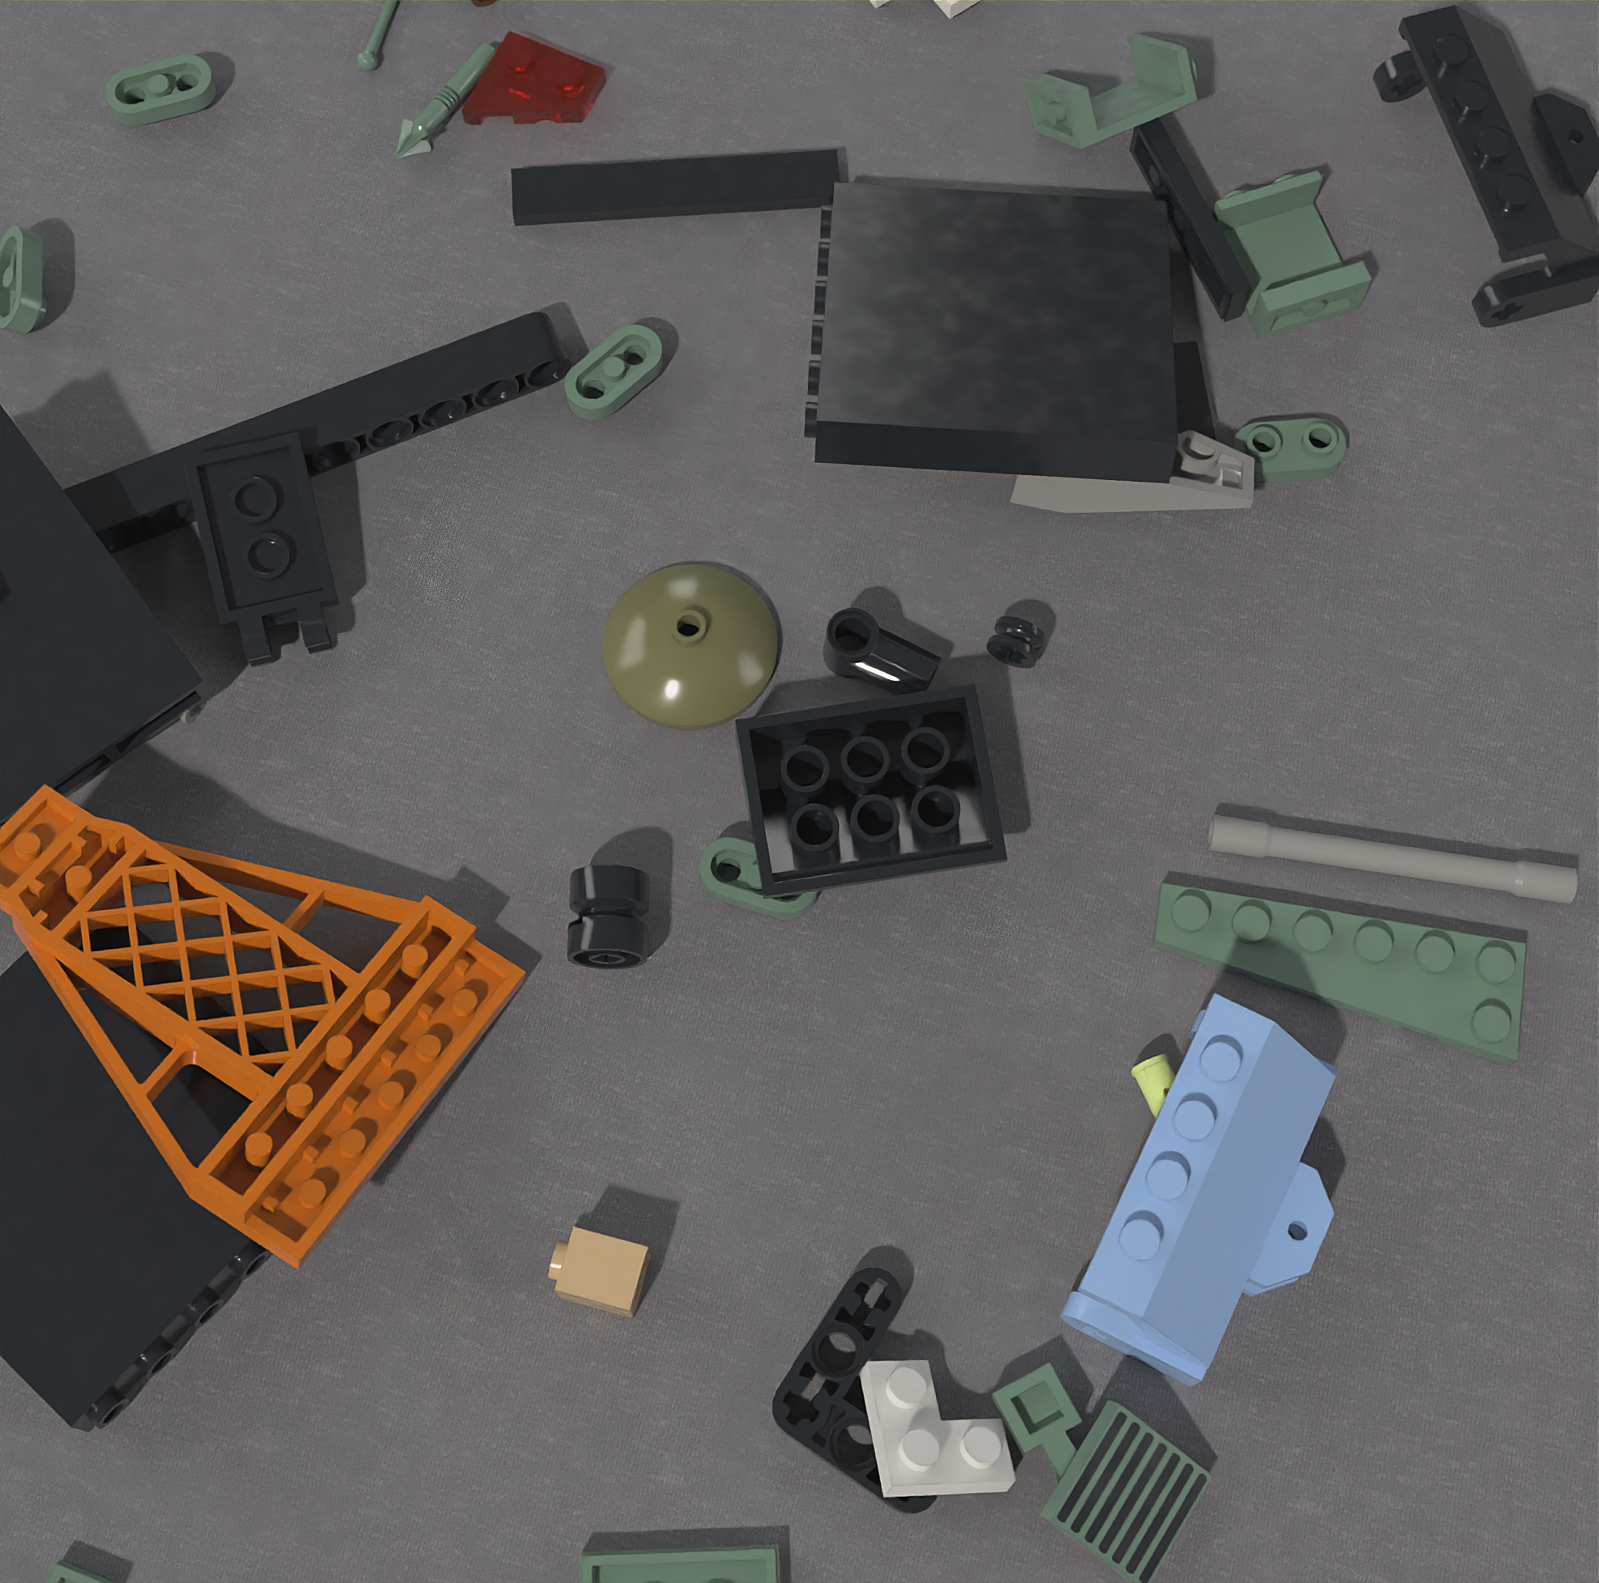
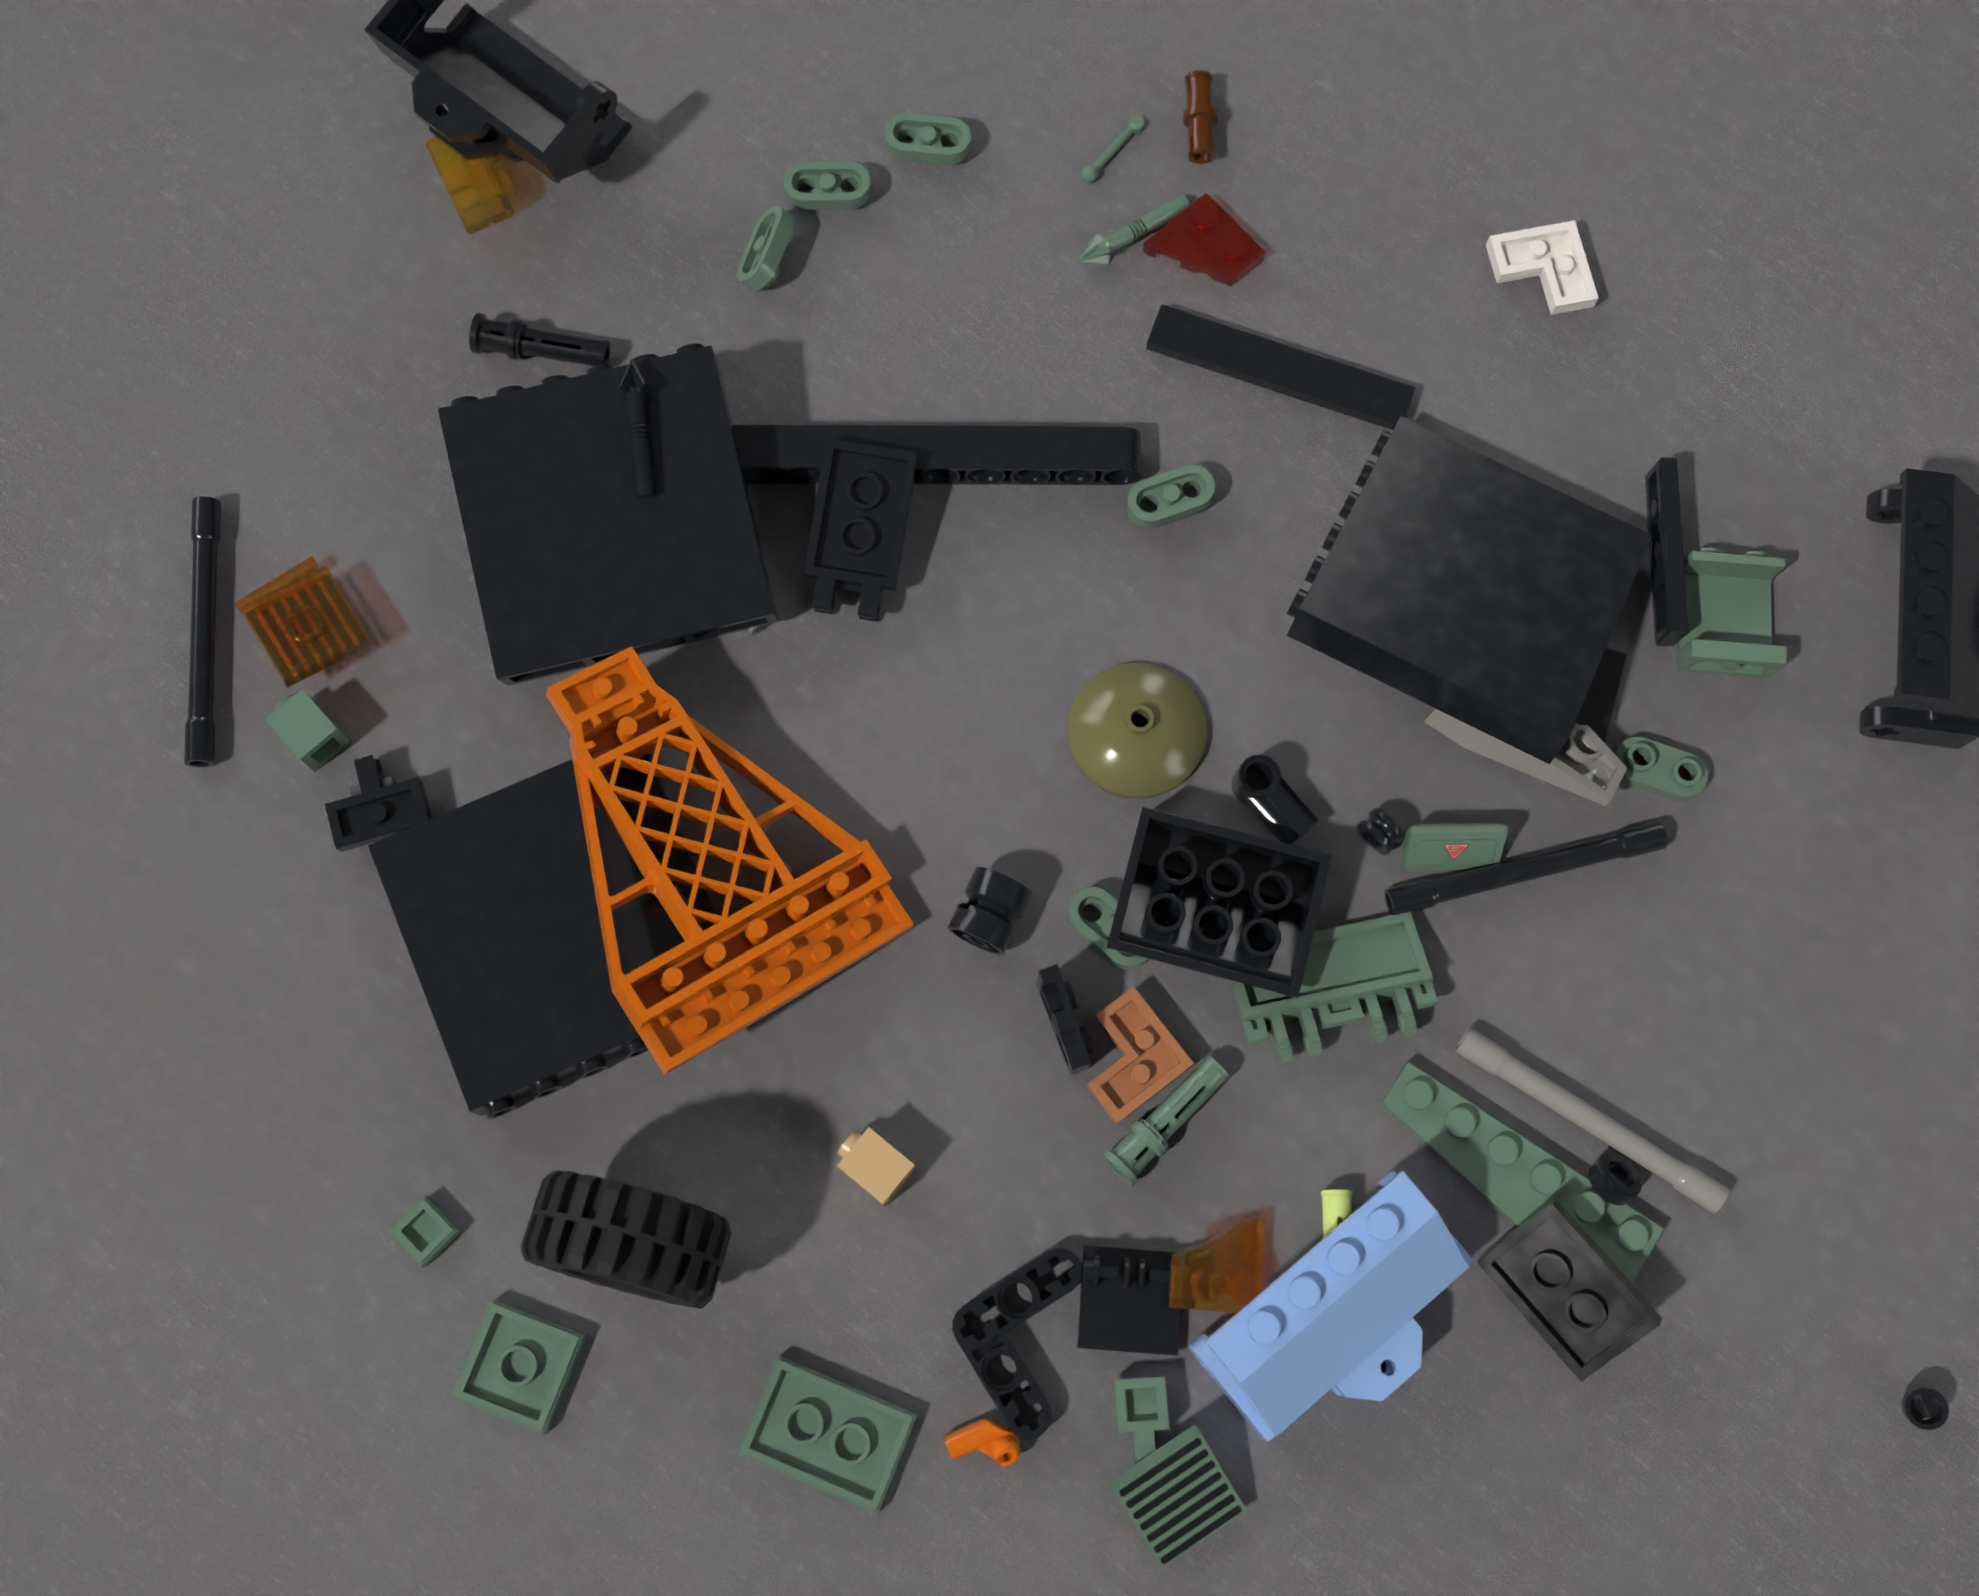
camera: 25 degrees right, 5 degrees up
(63, 183) = (828, 182): none -> sand green plate
(332, 1486) = (626, 1238): none -> black tyre
(746, 1001) = (1059, 1005): none -> black wing
(868, 1009) = (1148, 1061): none -> nougat plate
(873, 1534) = (987, 1438): none -> orange arm
(909, 1093) = (1150, 1135): none -> sand green pin
(917, 1449) = (1042, 1391): white plate -> none
(970, 1294) = (1127, 1301): none -> black hinge
(1053, 823) = (1345, 965): none -> sand green hinge
(1058, 1210) = (1220, 1271): none -> clear orange wing
(1099, 688) = (1622, 844): none -> black piece
(1104, 624) = (1452, 846): none -> sand green slope
(1161, 85) = (1650, 444): sand green panel -> none
(1448, 912) = (1615, 1179): none -> black tile
(1456, 1055) = (1569, 1290): none -> black plate

